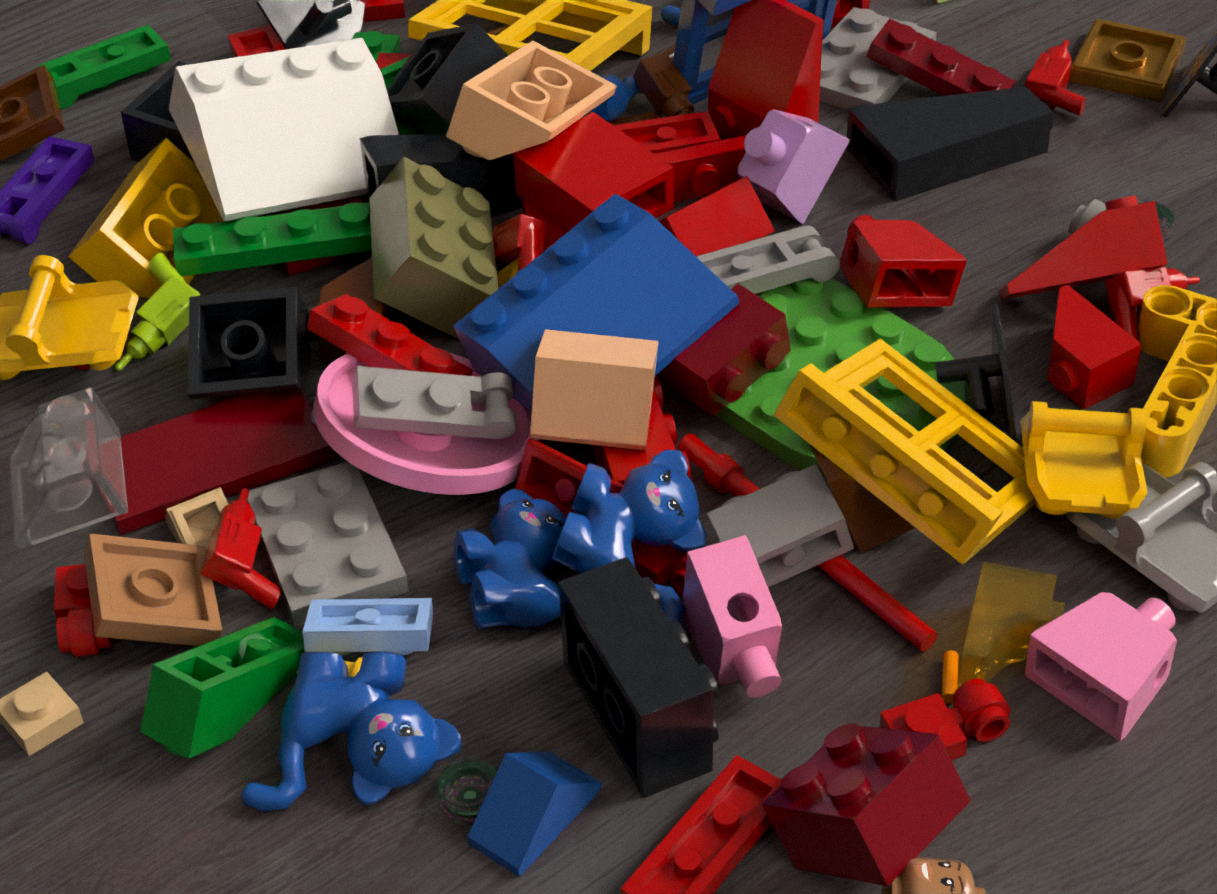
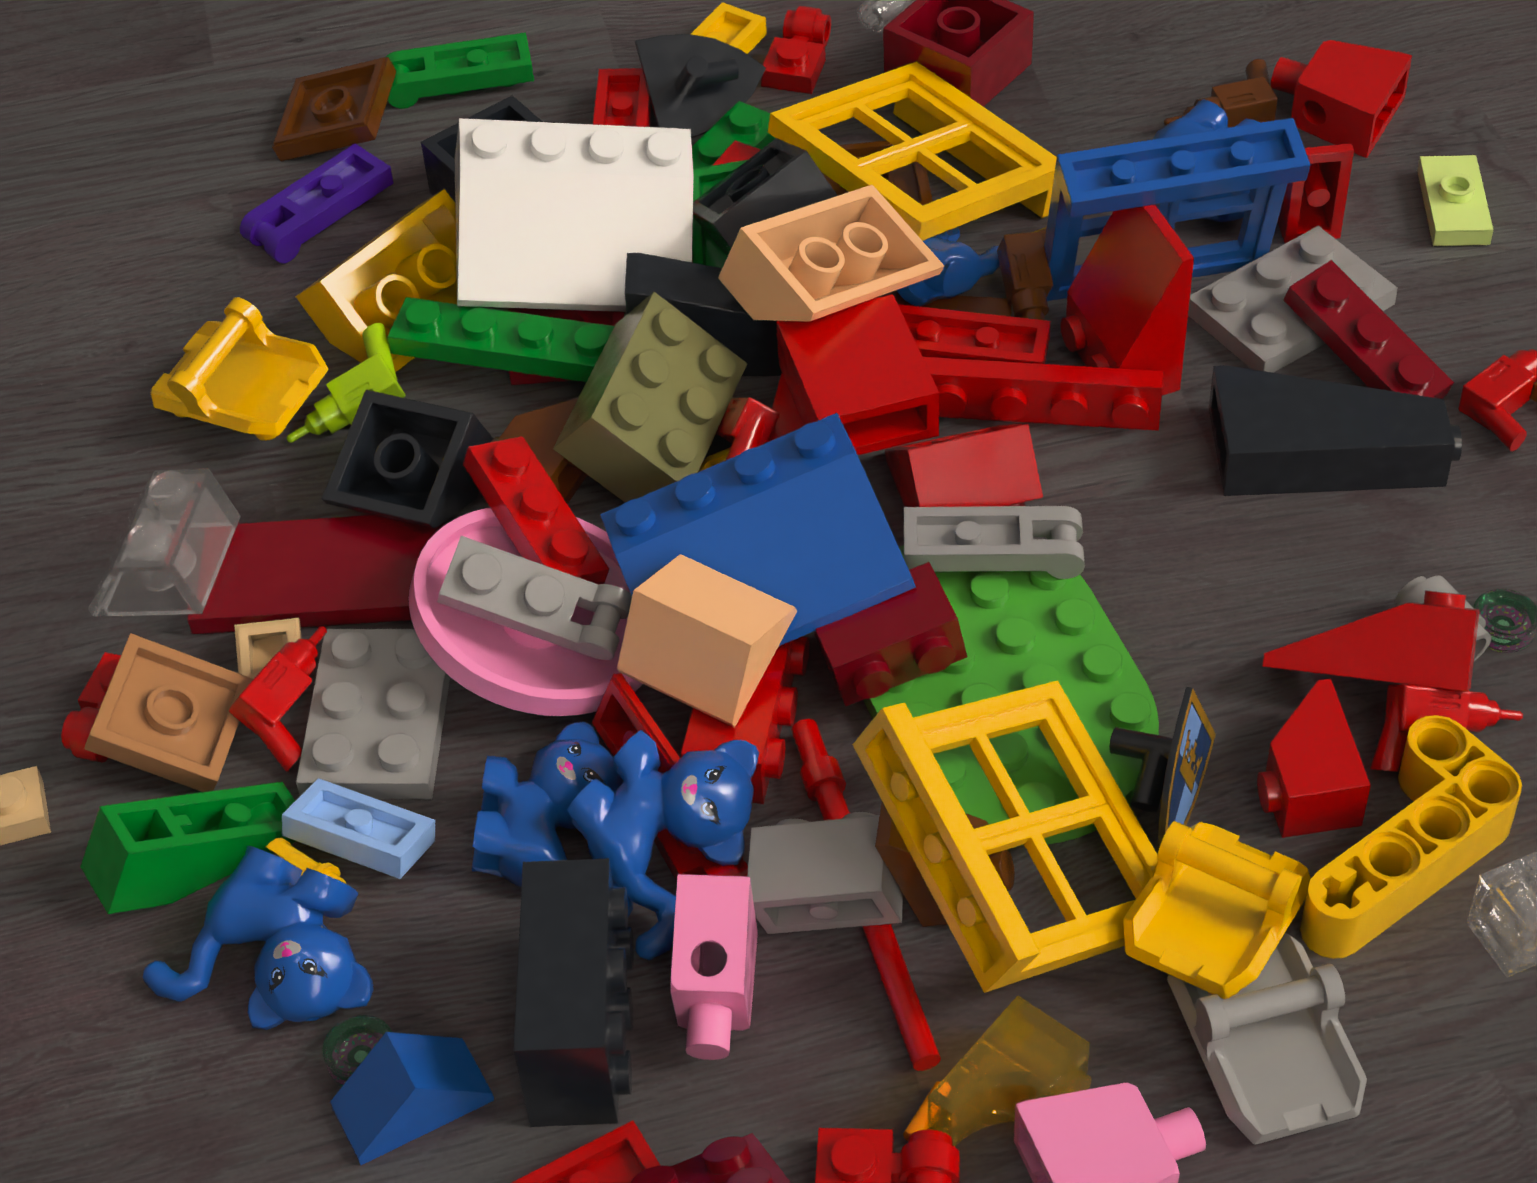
camera: 25 degrees right, 5 degrees up
(790, 162) = (1099, 415): lavender torso -> none
(900, 264) = (1158, 585): red torso -> none

